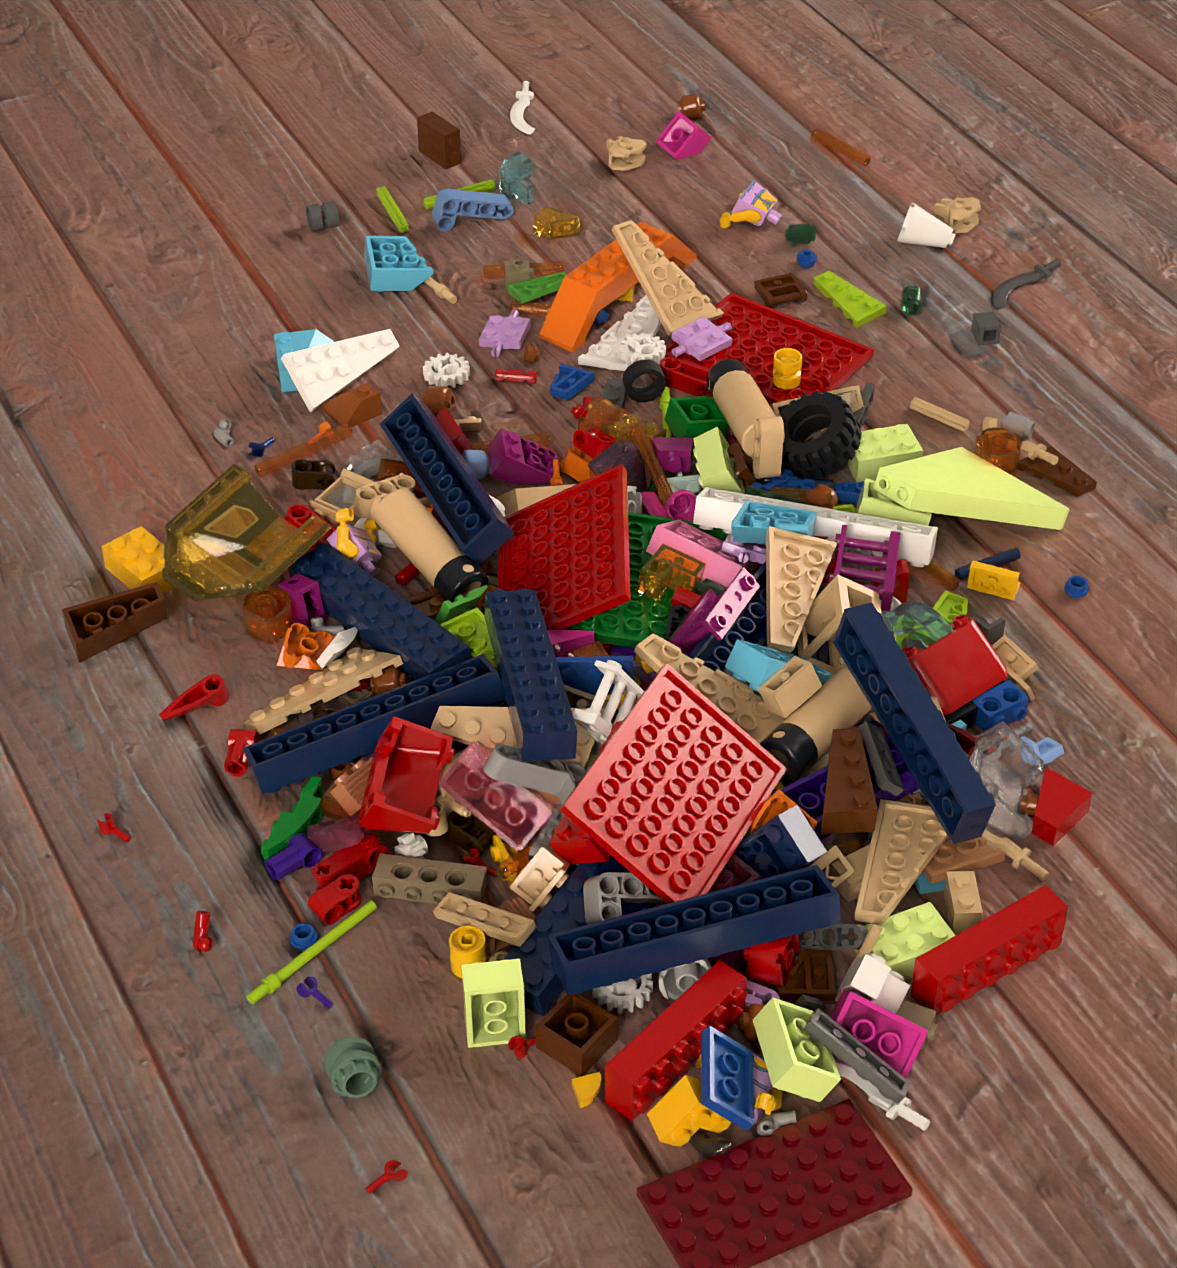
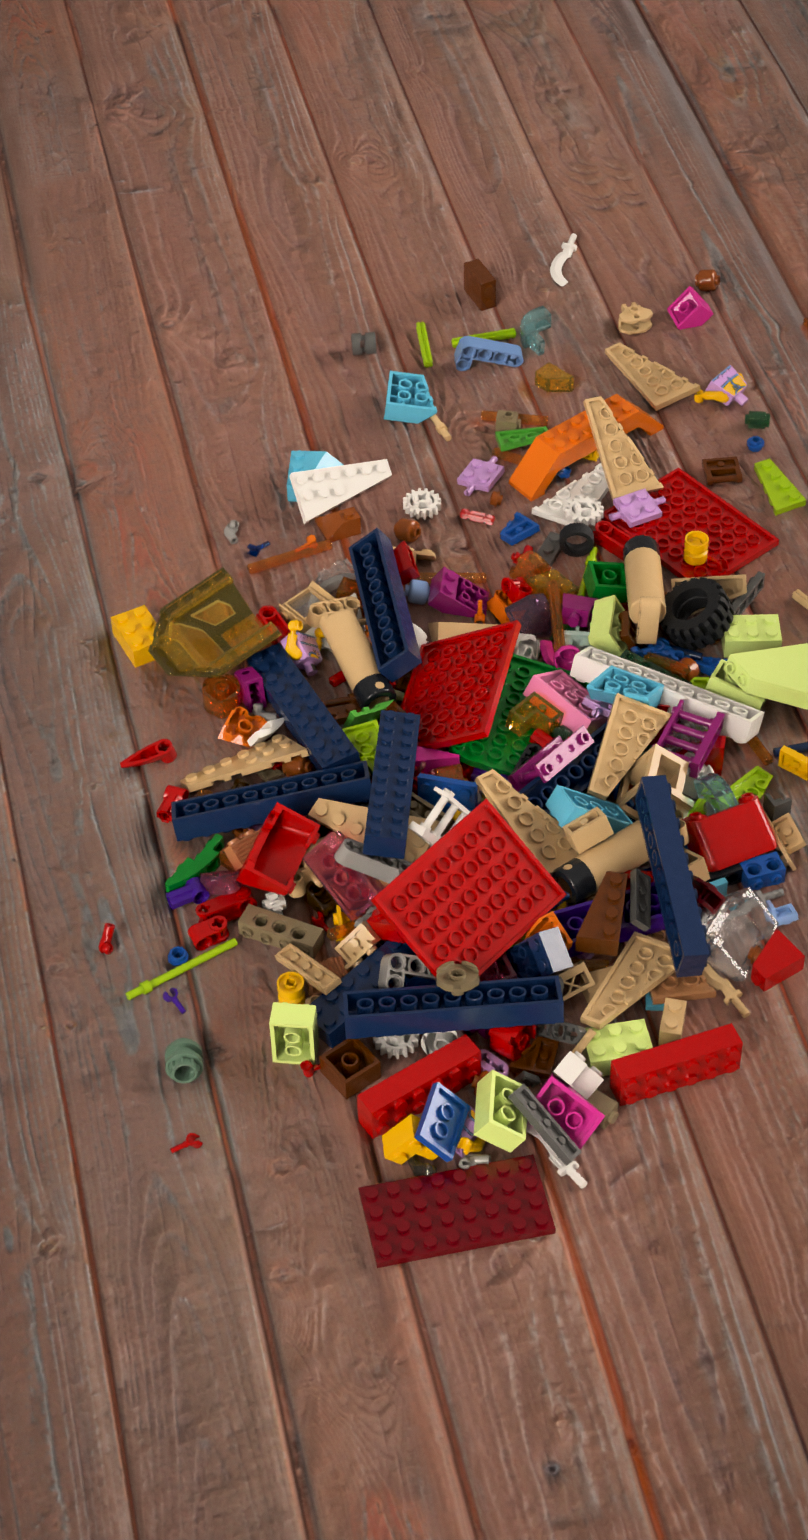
camera: 15 degrees right, 5 degrees up
(109, 827) = (63, 846): red hand -> none
(113, 619) = (105, 679): reddish brown wedge -> none
(310, 474) = (288, 579): dark brown piece -> none
(586, 1088) = (346, 1109): yellow tile -> none
(666, 210) = (651, 379): none -> tan wing
(692, 889) = (457, 977): none -> dark tan plate

